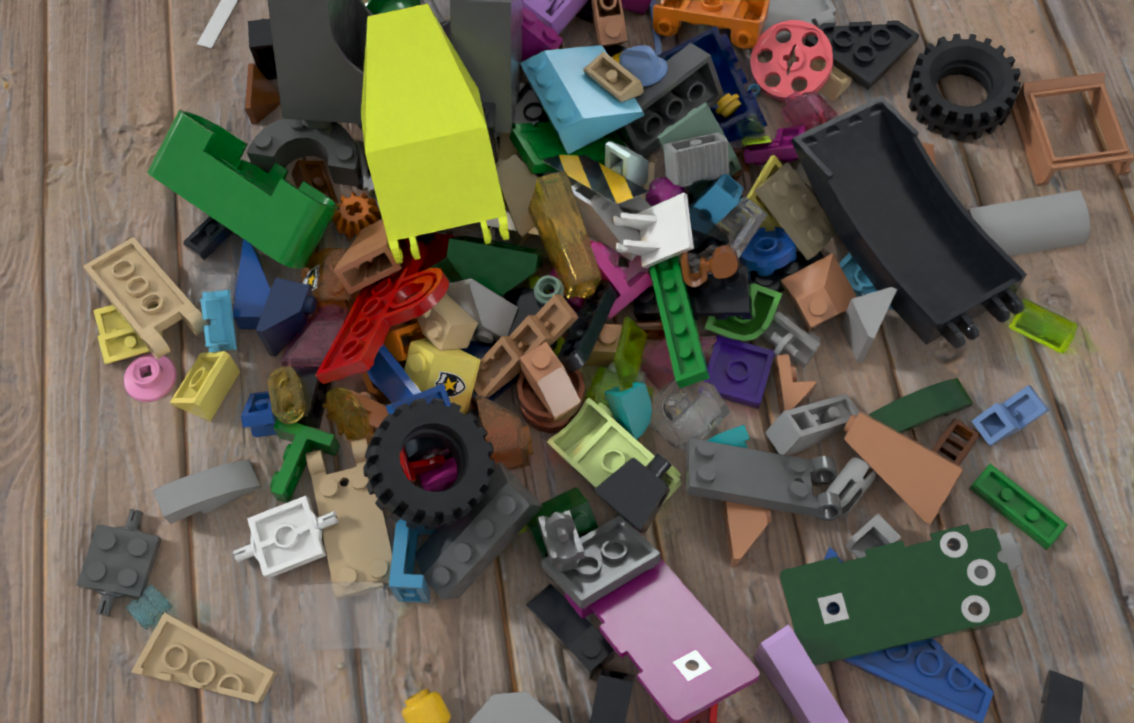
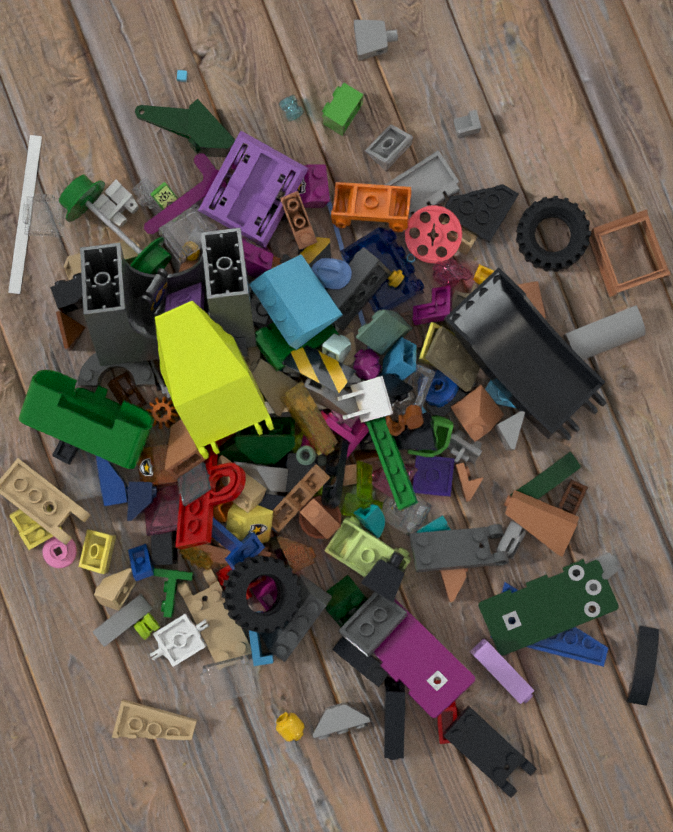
camera: 20 degrees left, 20 degrees up
(119, 562) = (82, 674): dark grey plate -> none
(148, 606) = (110, 698): clear light blue wheel -> none
(211, 439) = (115, 589): none -> tan slope
(221, 331) = (96, 508): medium azure hinge -> none
(241, 505) = (146, 626): none -> lime wheel
(288, 397) = (156, 555): clear yellow plate -> none
(370, 299) = (194, 484): none -> clear light blue piece
(561, 540) = (348, 618): flat silver hips -> none
(614, 78) = (316, 290): tan slope -> none
(696, 159) = (383, 344): light grey brick -> none
(756, 140) = (419, 305): clear neon green sticker -> none
(810, 424) = (485, 502): light grey slope -> none
(873, 534) = (529, 570): light grey panel -> none
(1011, 416) = (604, 472): medium blue slope -> none
(1018, 506) = (614, 529): green tile -> none
(1044, 326) = (622, 403): clear neon green slope -> none

